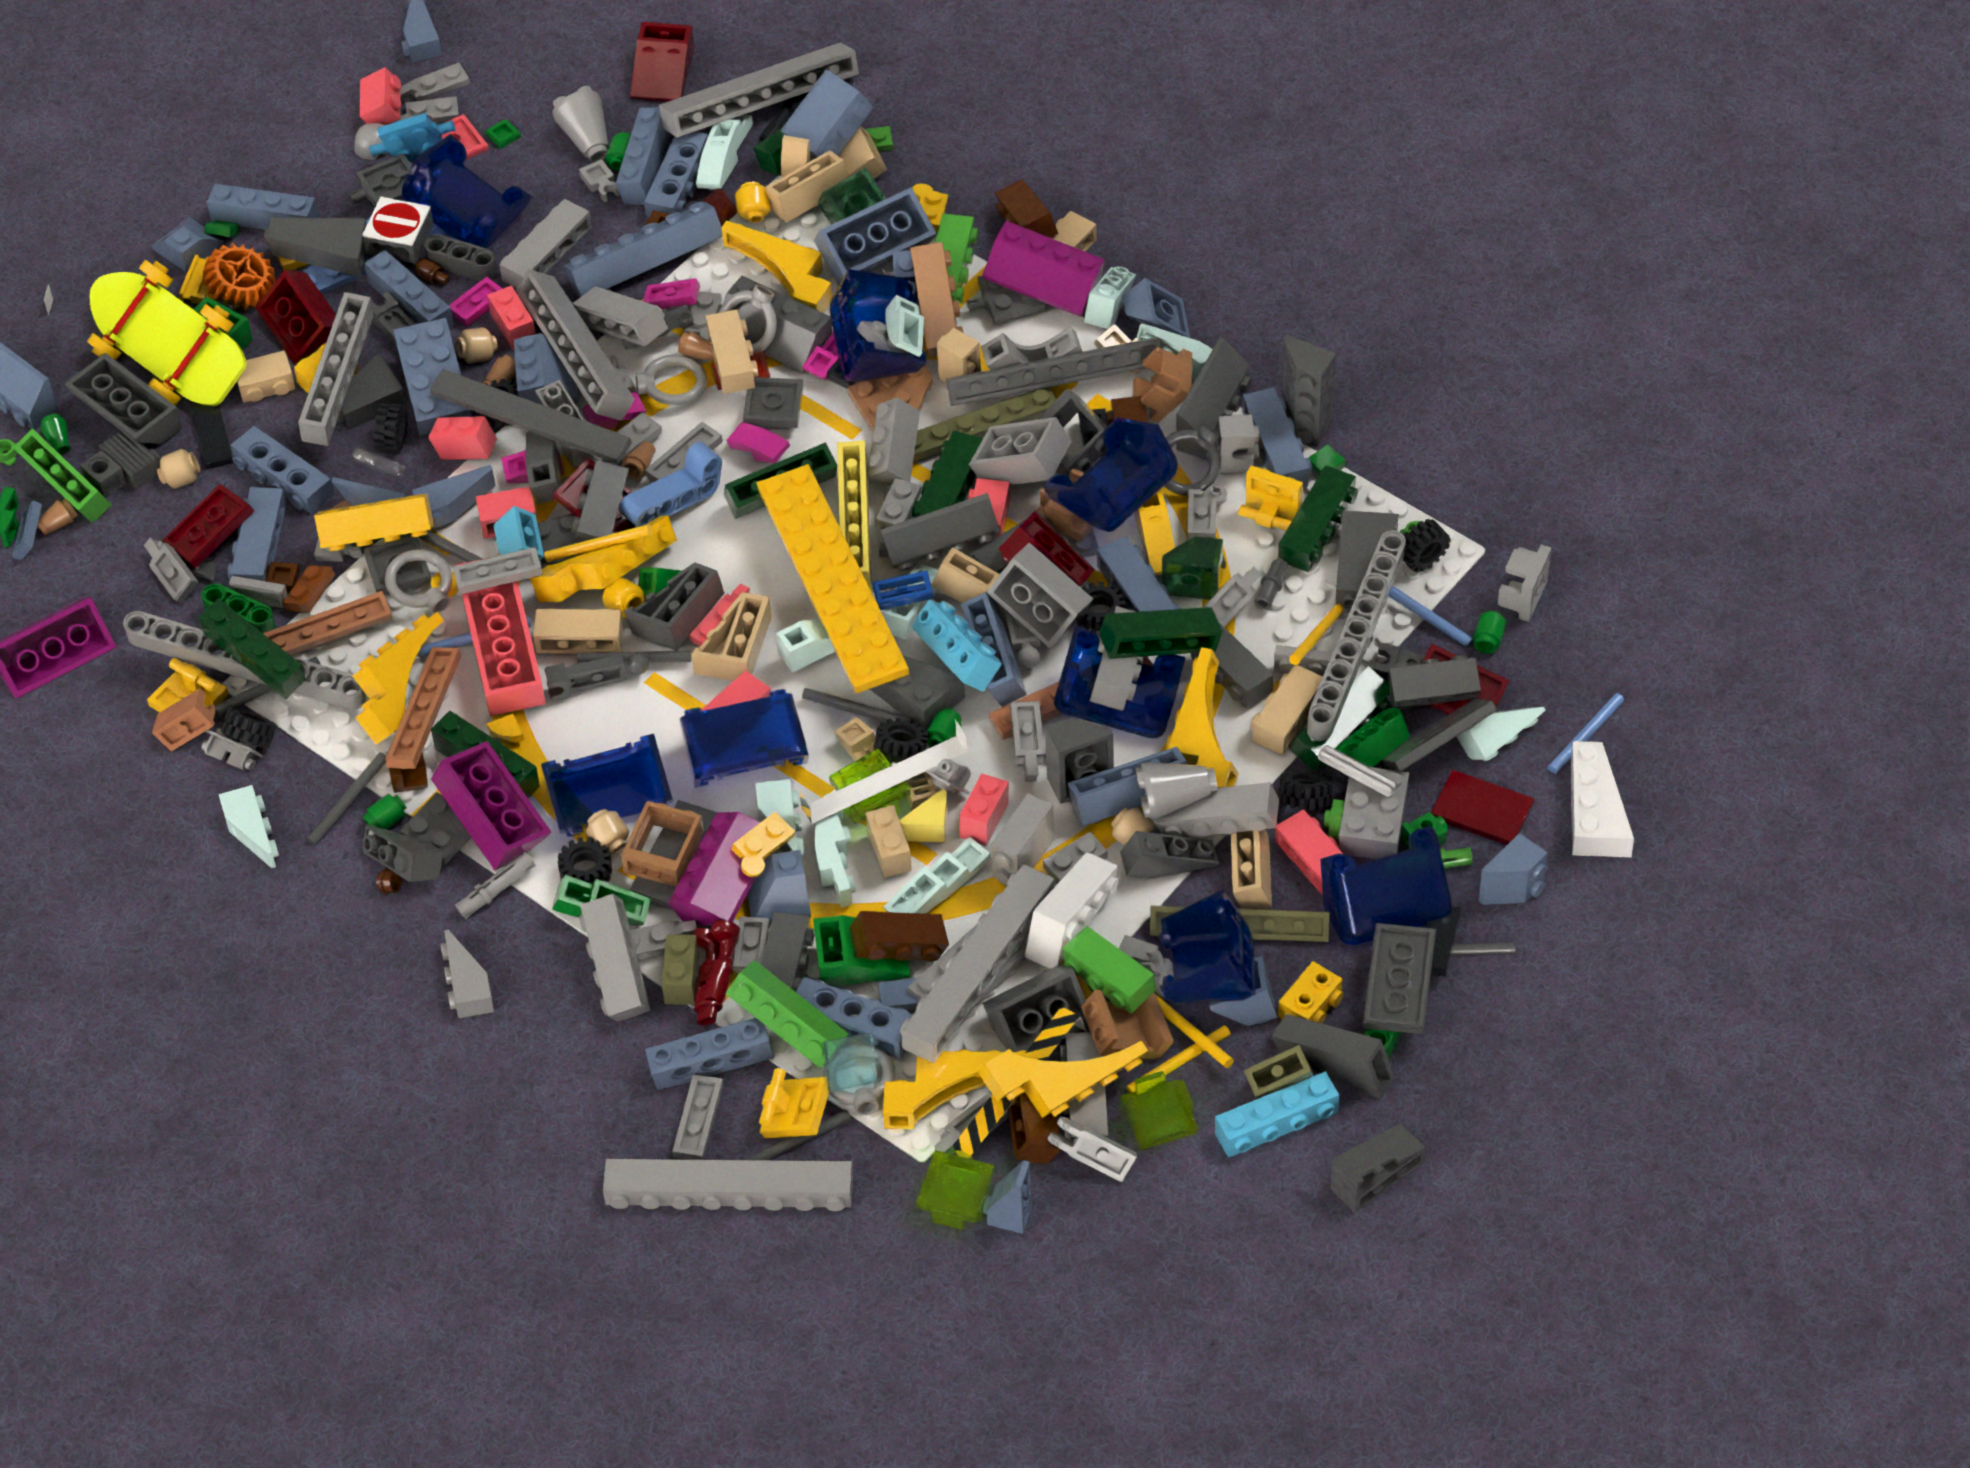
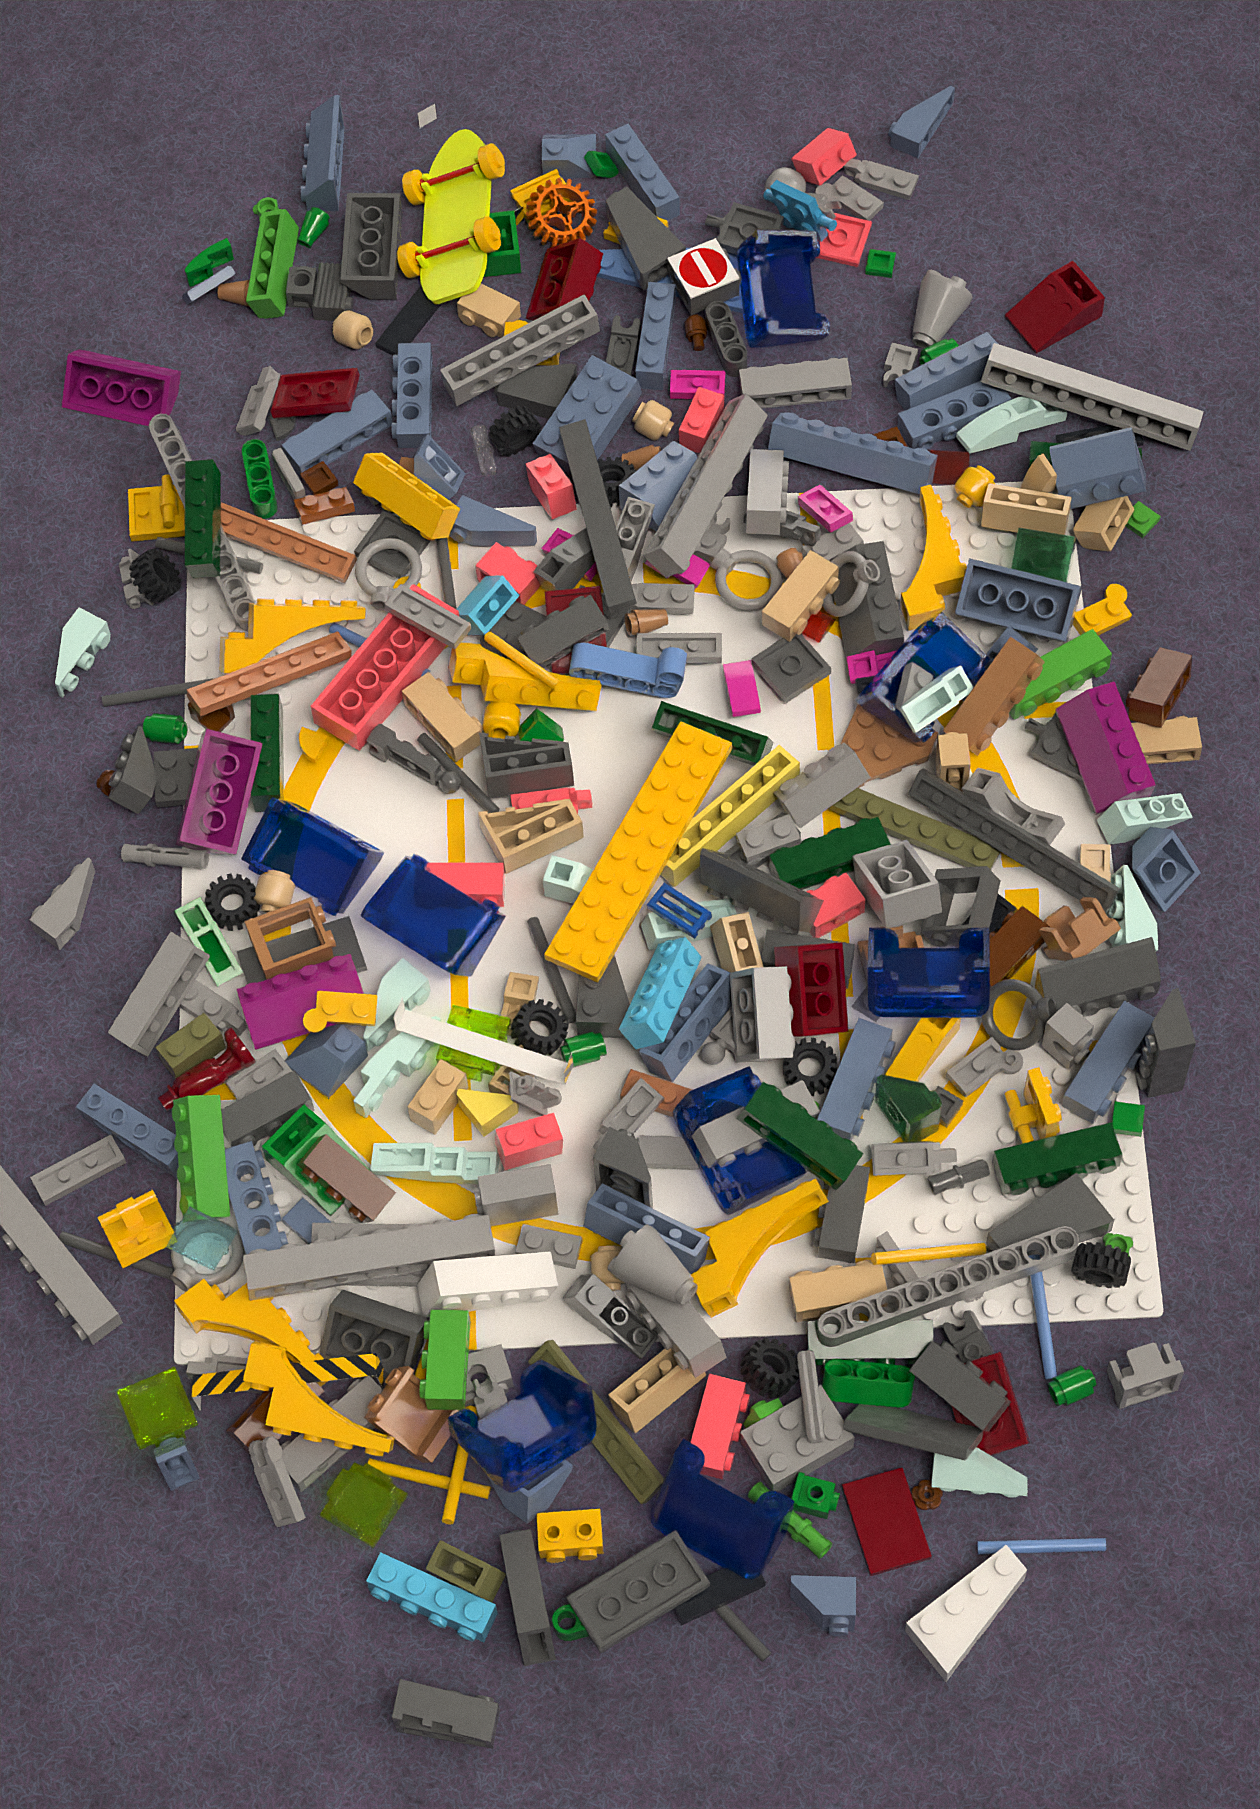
camera: 50 degrees right, 10 degrees up
(184, 720) = (123, 527): nougat hinge -> none
(1489, 776) = (927, 1503): none -> reddish brown plate

